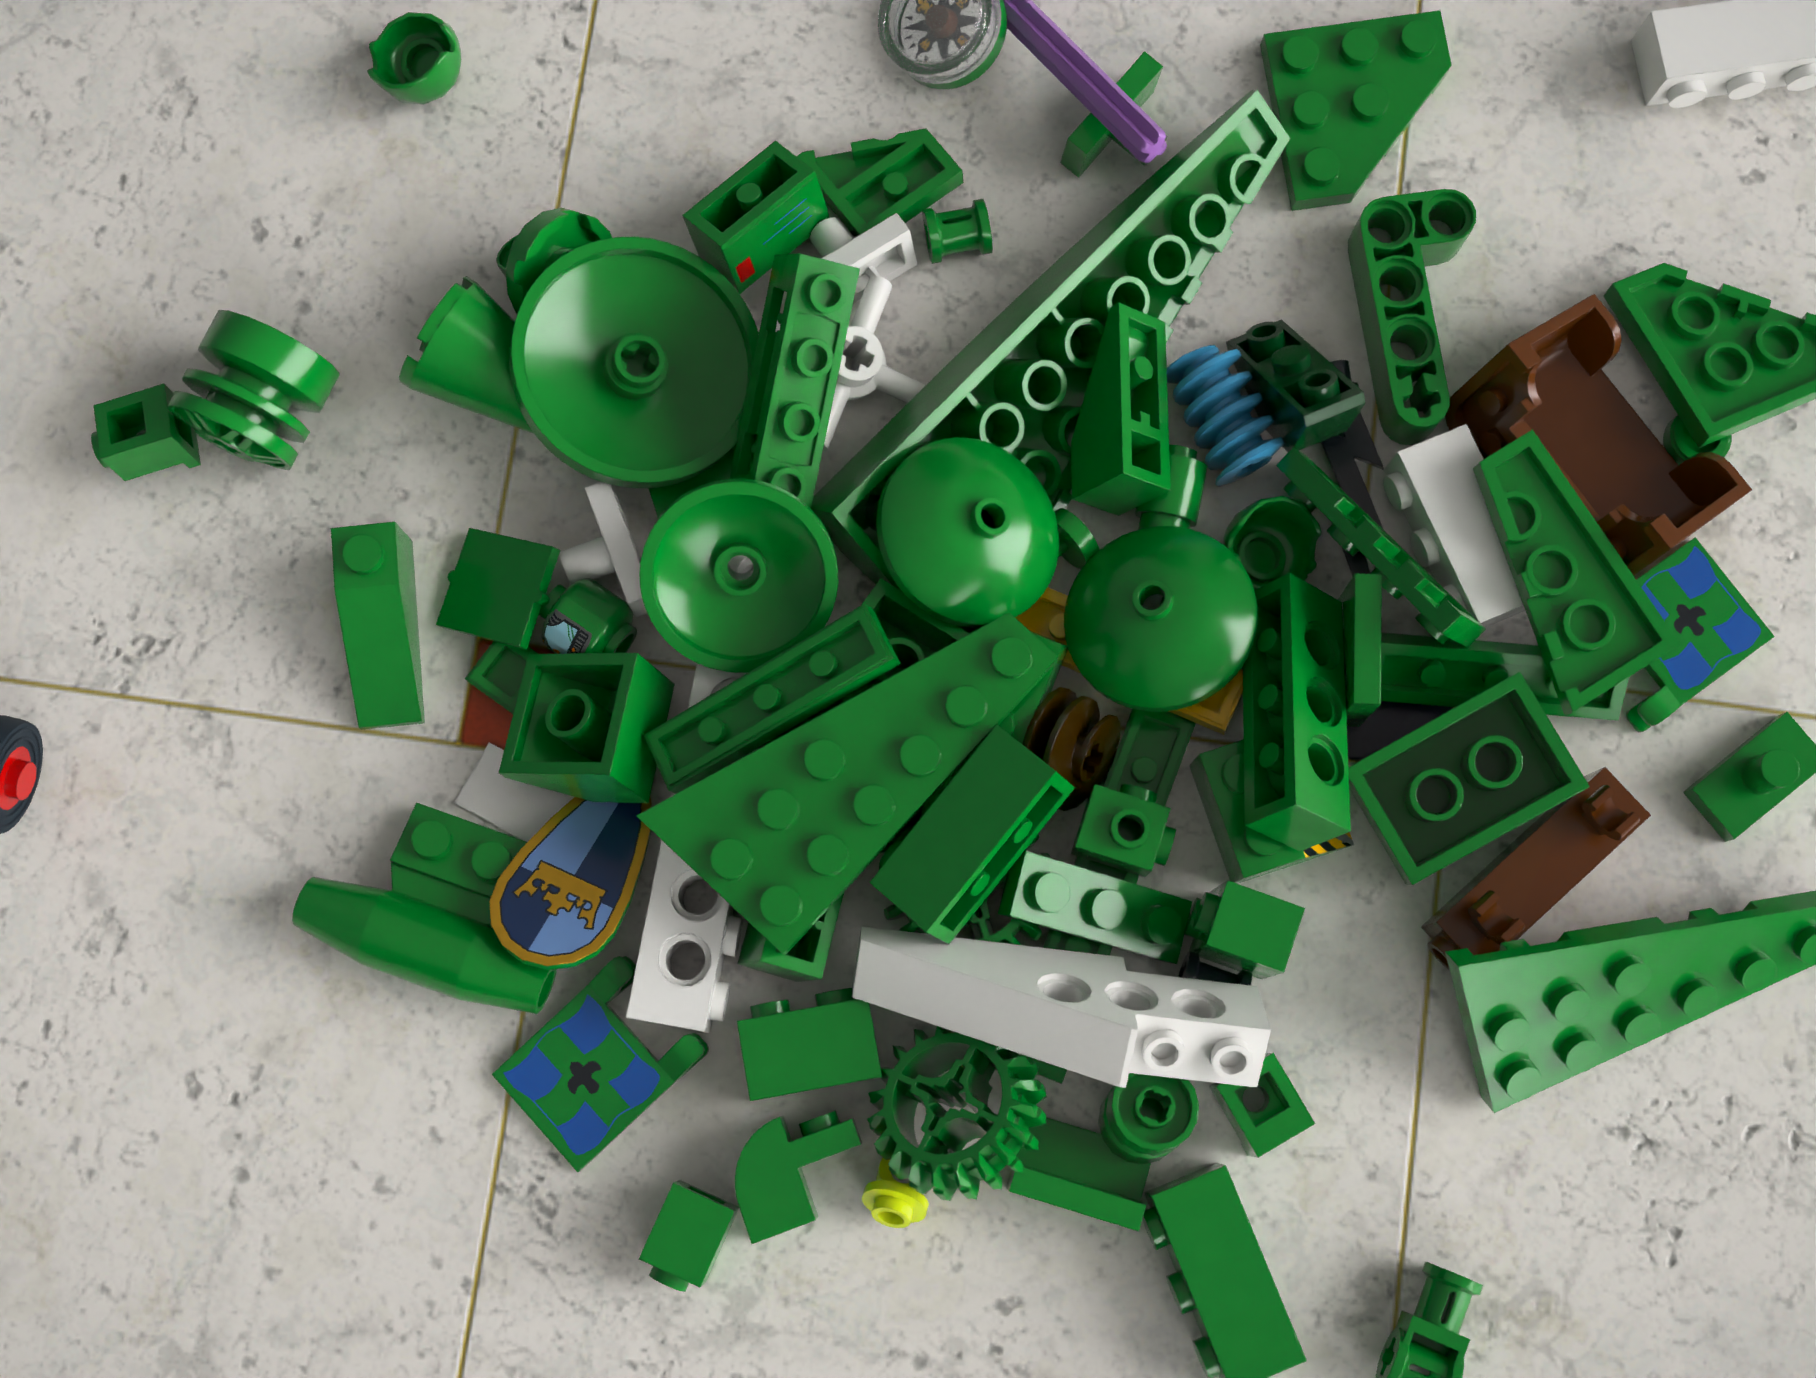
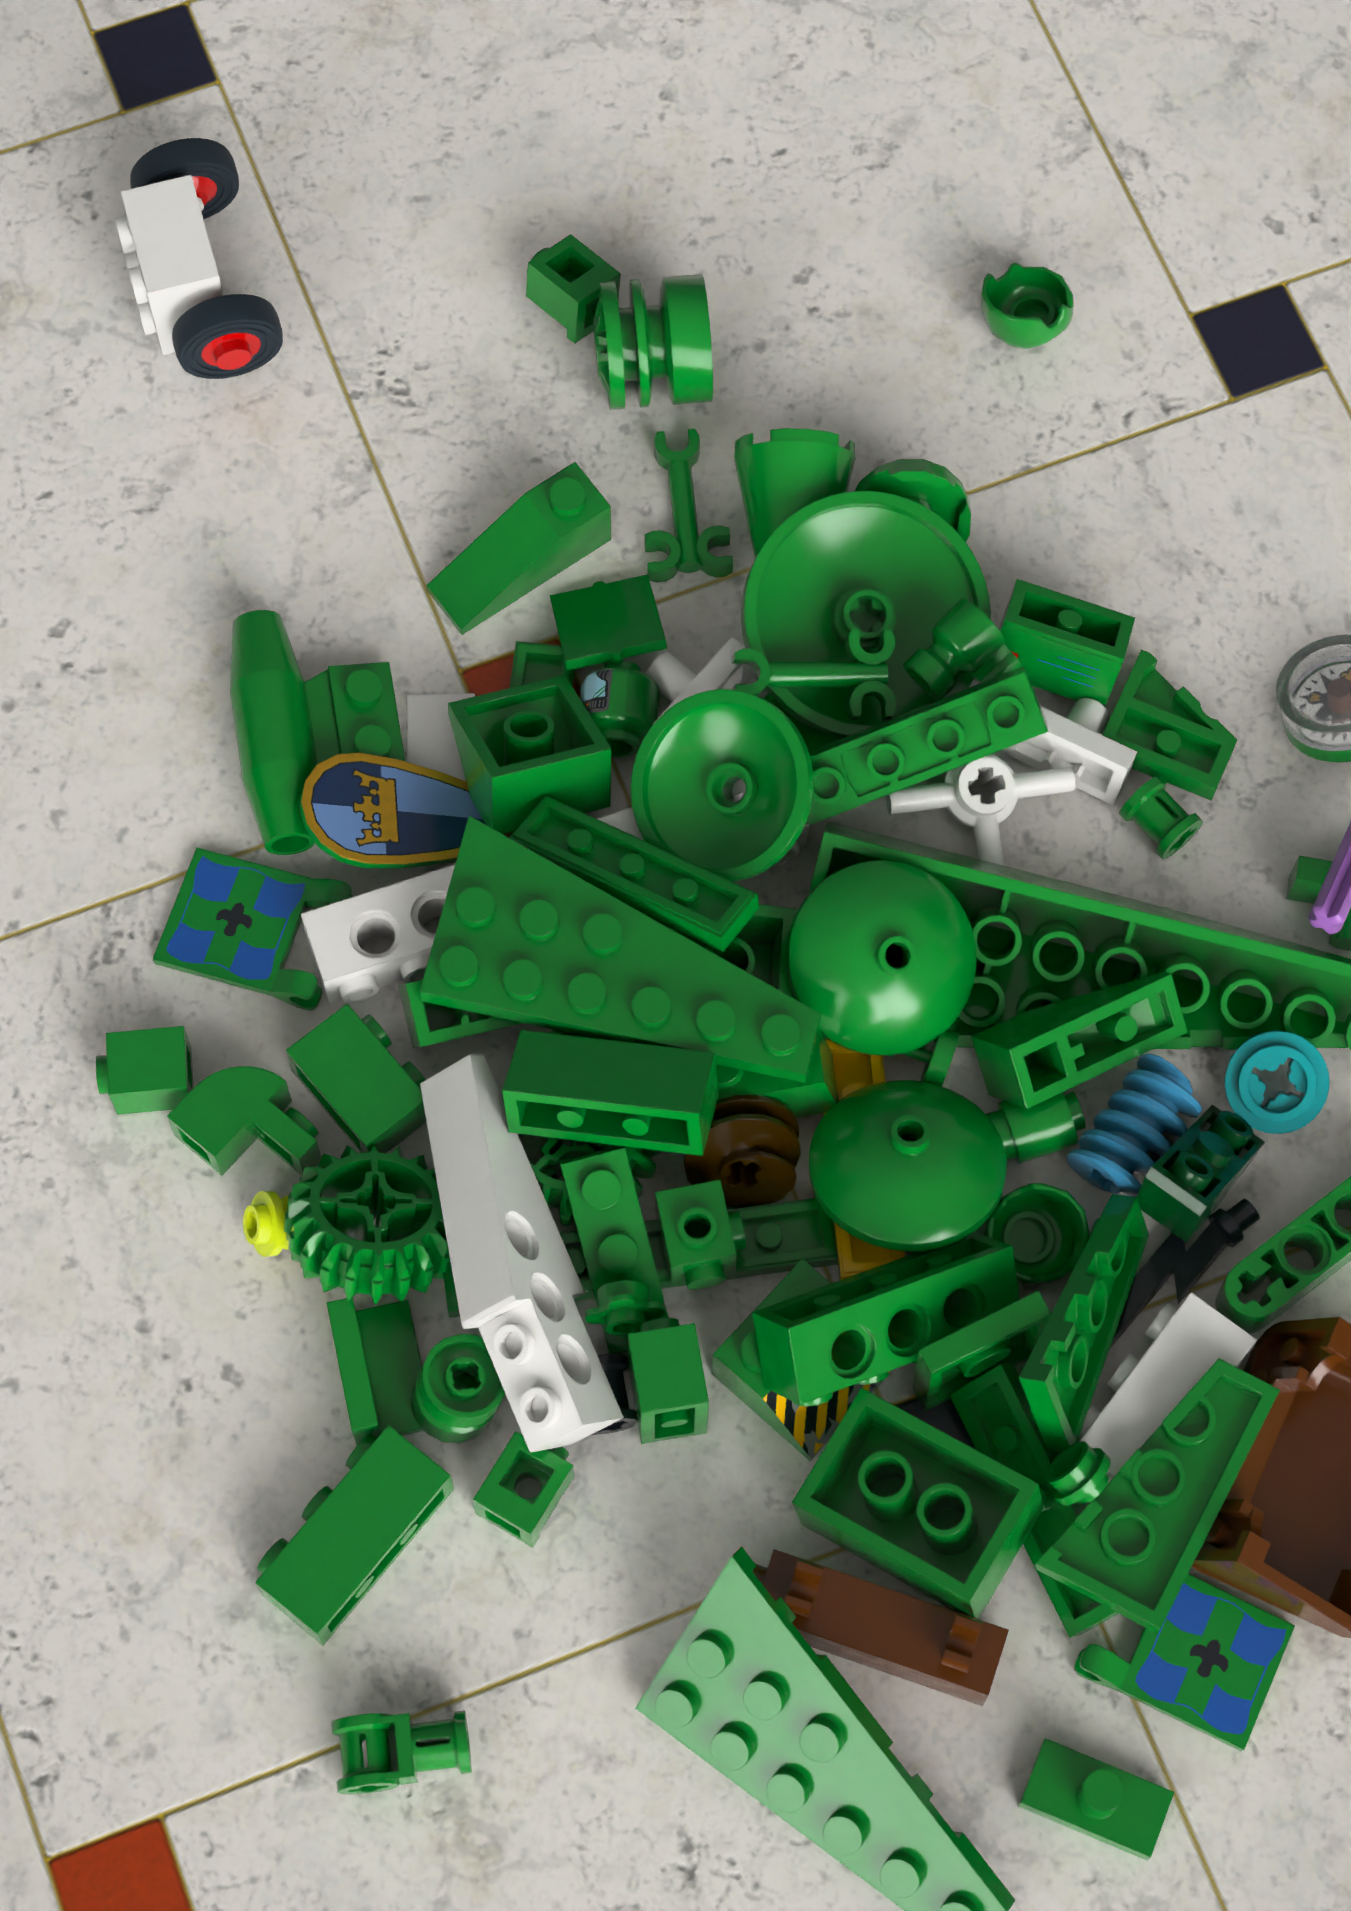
camera: 60 degrees right, 10 degrees down
(463, 482) = (687, 550): none -> green bar
(695, 395) = (865, 672): none -> green bar
(718, 293) = (961, 642): none -> green piece
(1165, 931) = (624, 1307): none -> green plate
(1265, 288) = (1285, 1110): none -> teal gear
(1515, 633) = (1078, 1474): none -> green plate

